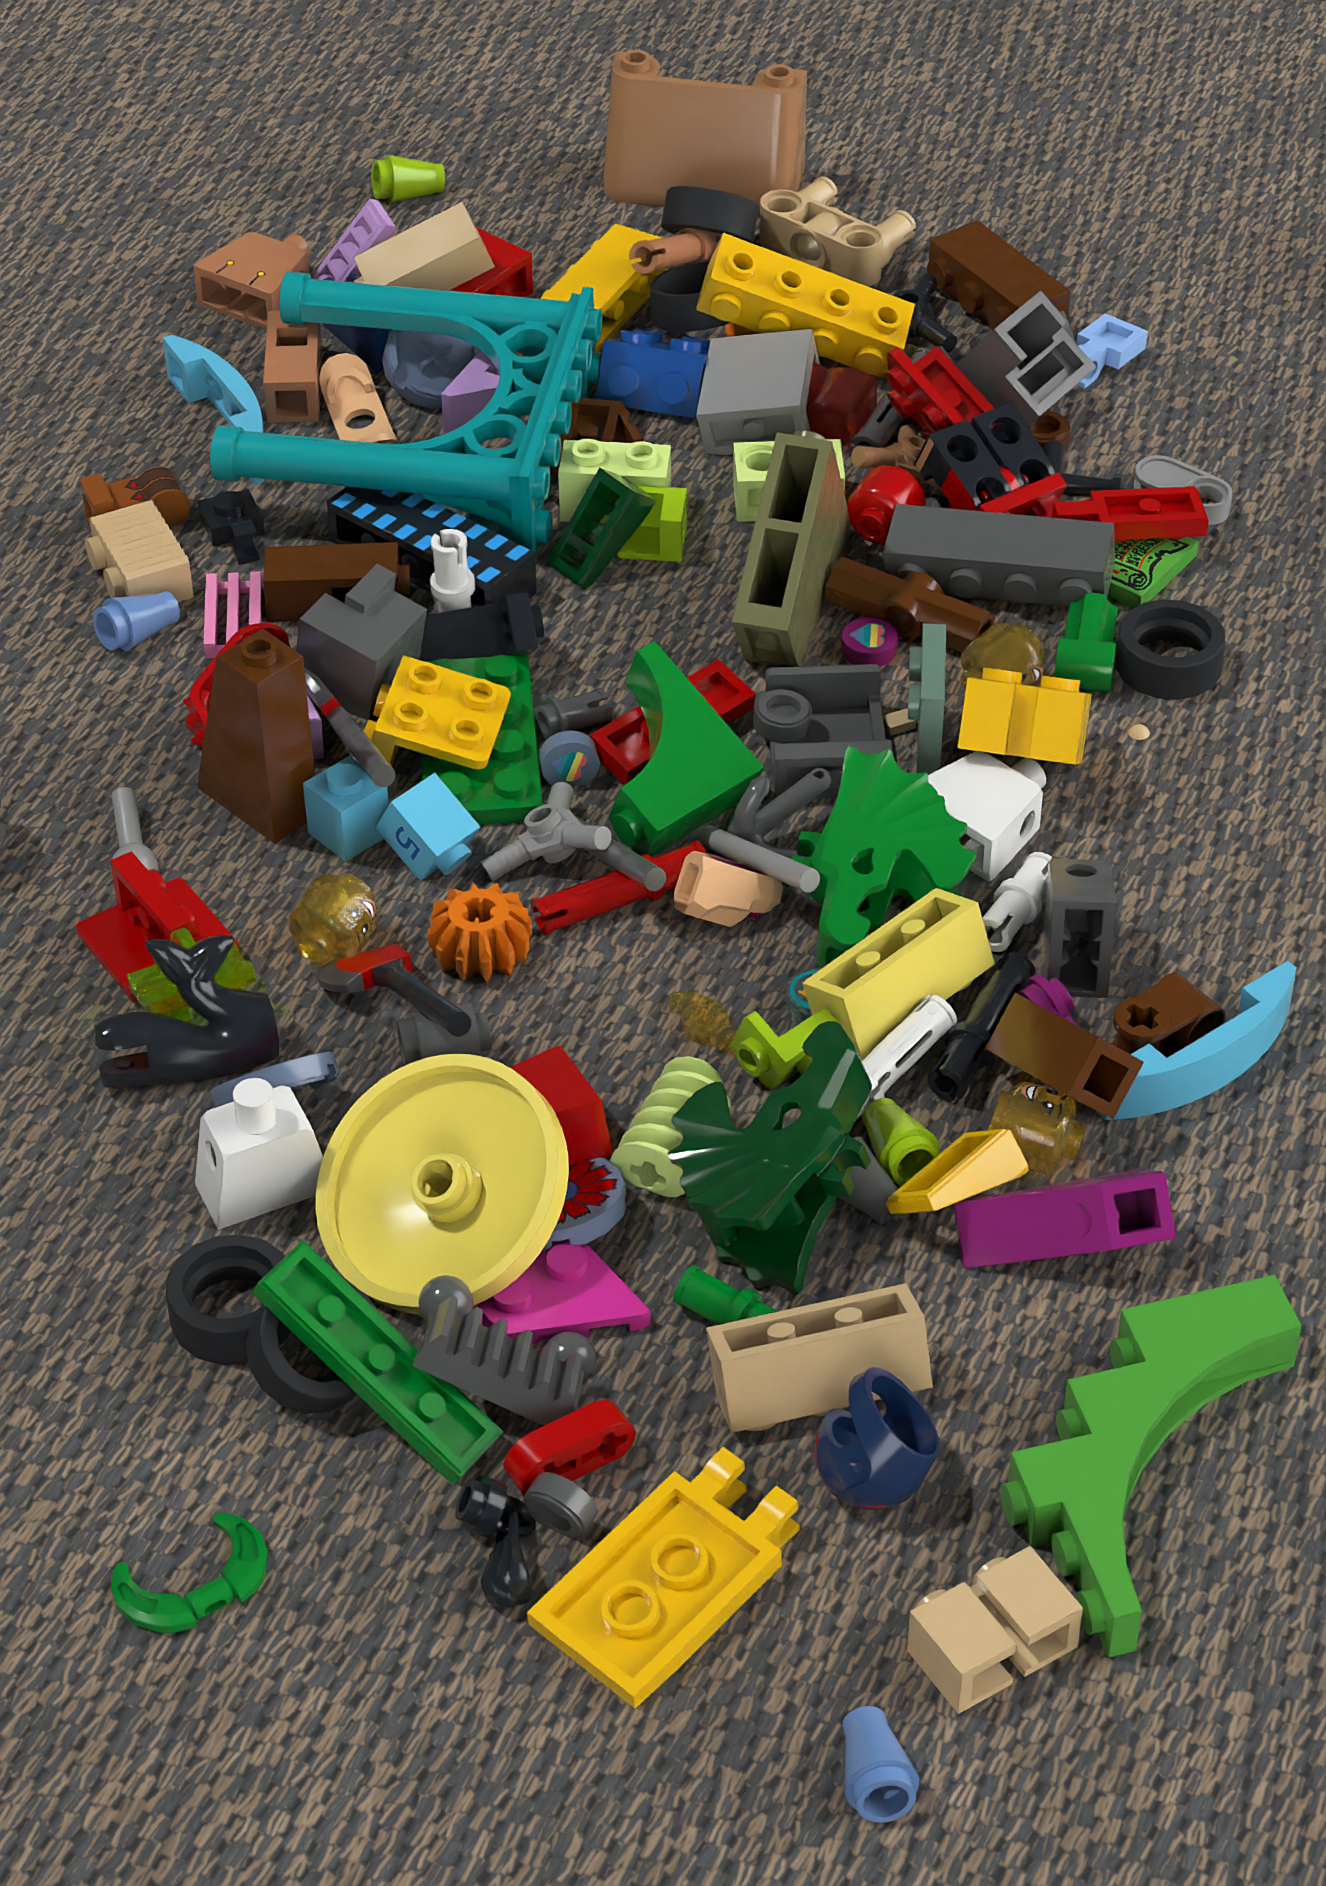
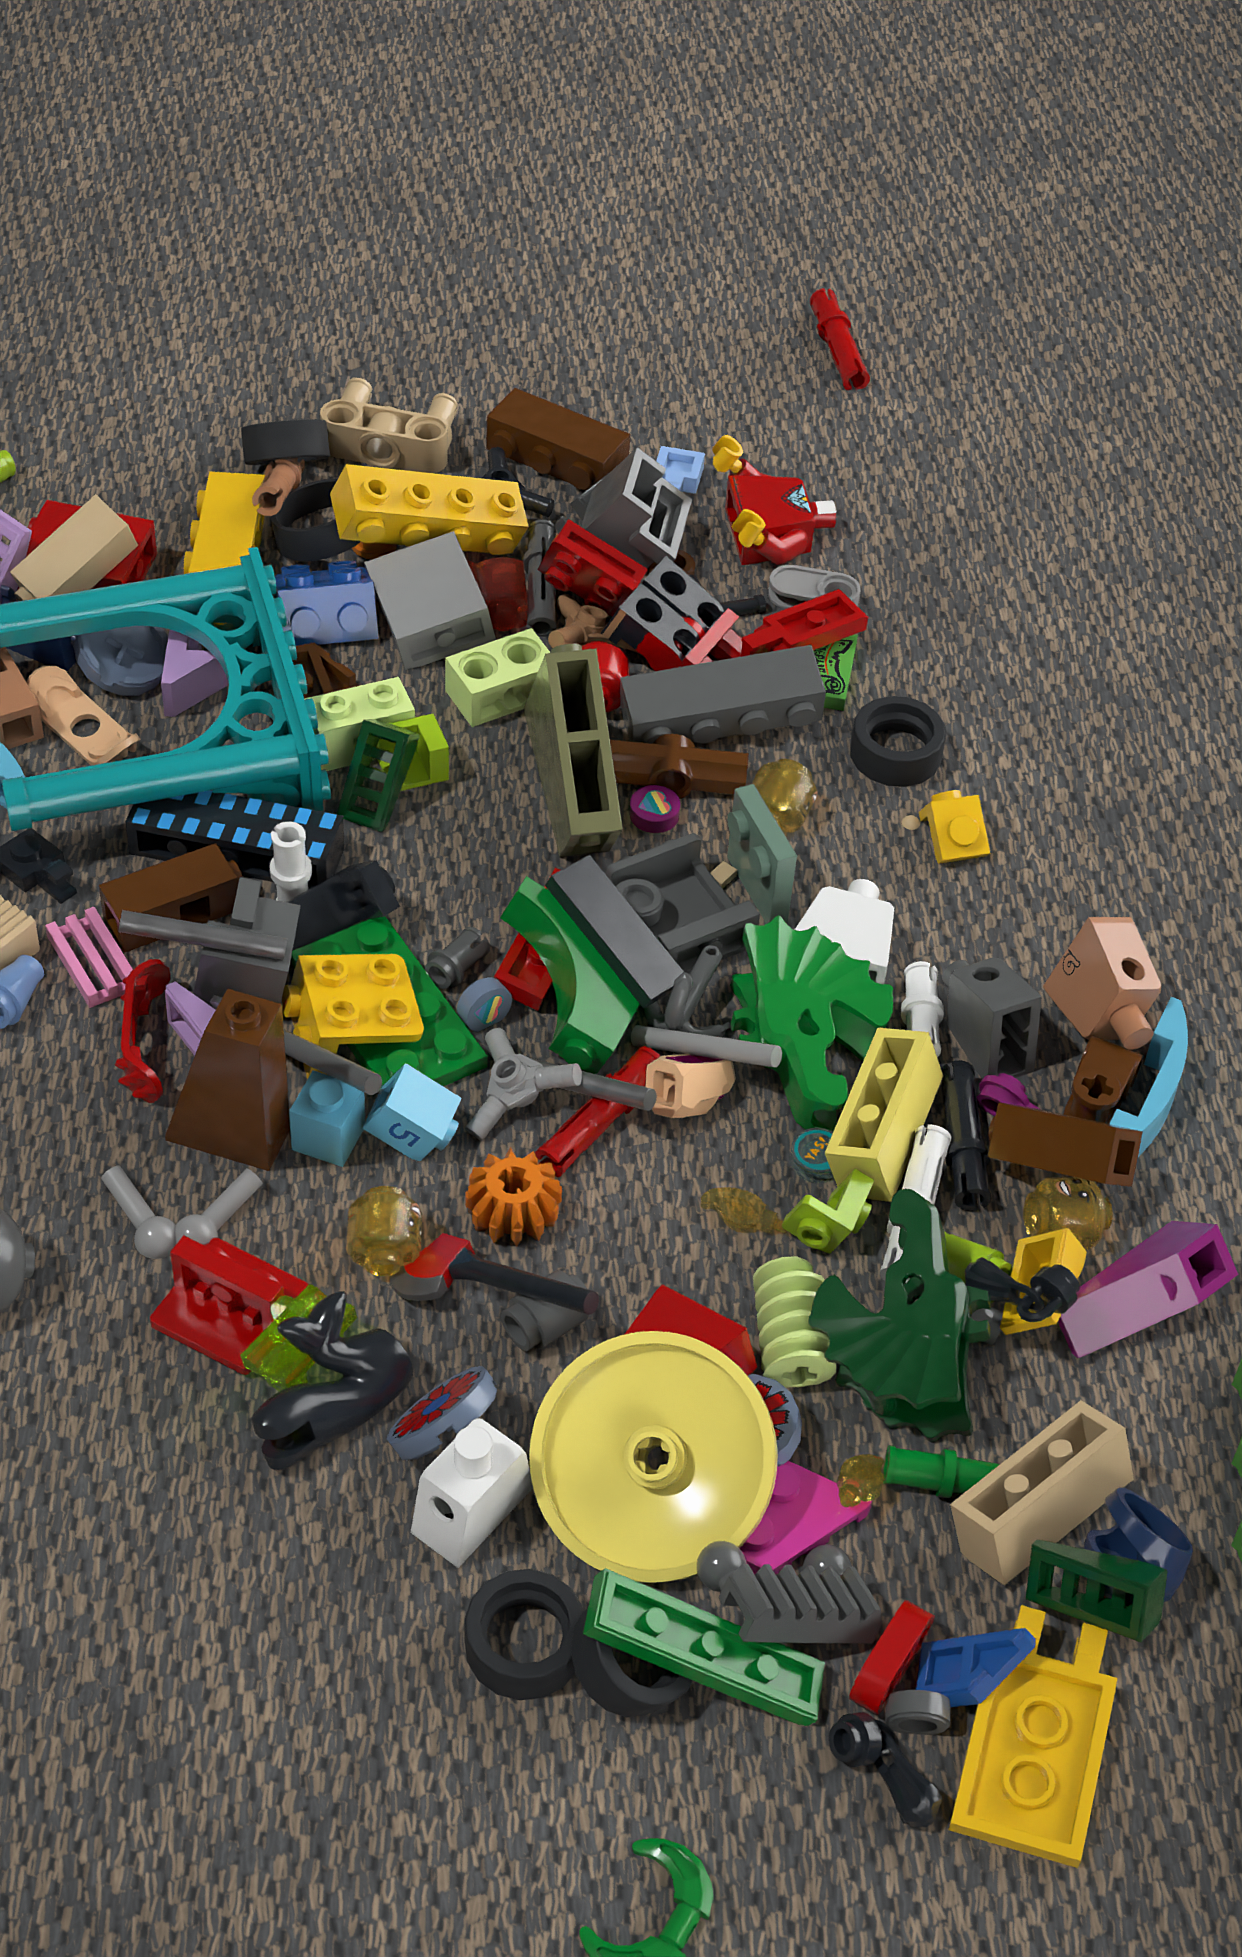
camera: 30 degrees left, 5 degrees up
(202, 860) = (205, 1226): none -> light grey bar
(308, 601) = (202, 935): none -> flat silver bar
(635, 1481) = (972, 1665): none -> blue tile
(644, 1286) = (860, 1479): none -> clear yellow piece
(702, 132) = (233, 371): medium nougat windscreen -> none
(719, 717) = (615, 930): none -> tile
(813, 1459) = (1125, 1575): none -> dark green slope
(892, 1153) = (1051, 1289): none -> black piece
(1025, 719) = (849, 844): yellow brick -> none
(1088, 644) = (834, 762): green piece -> none
(1176, 401) = (768, 513): none -> red torso
(1176, 744) = (956, 826): none -> yellow bracket
(1219, 940) = (1106, 982): none -> nougat torso

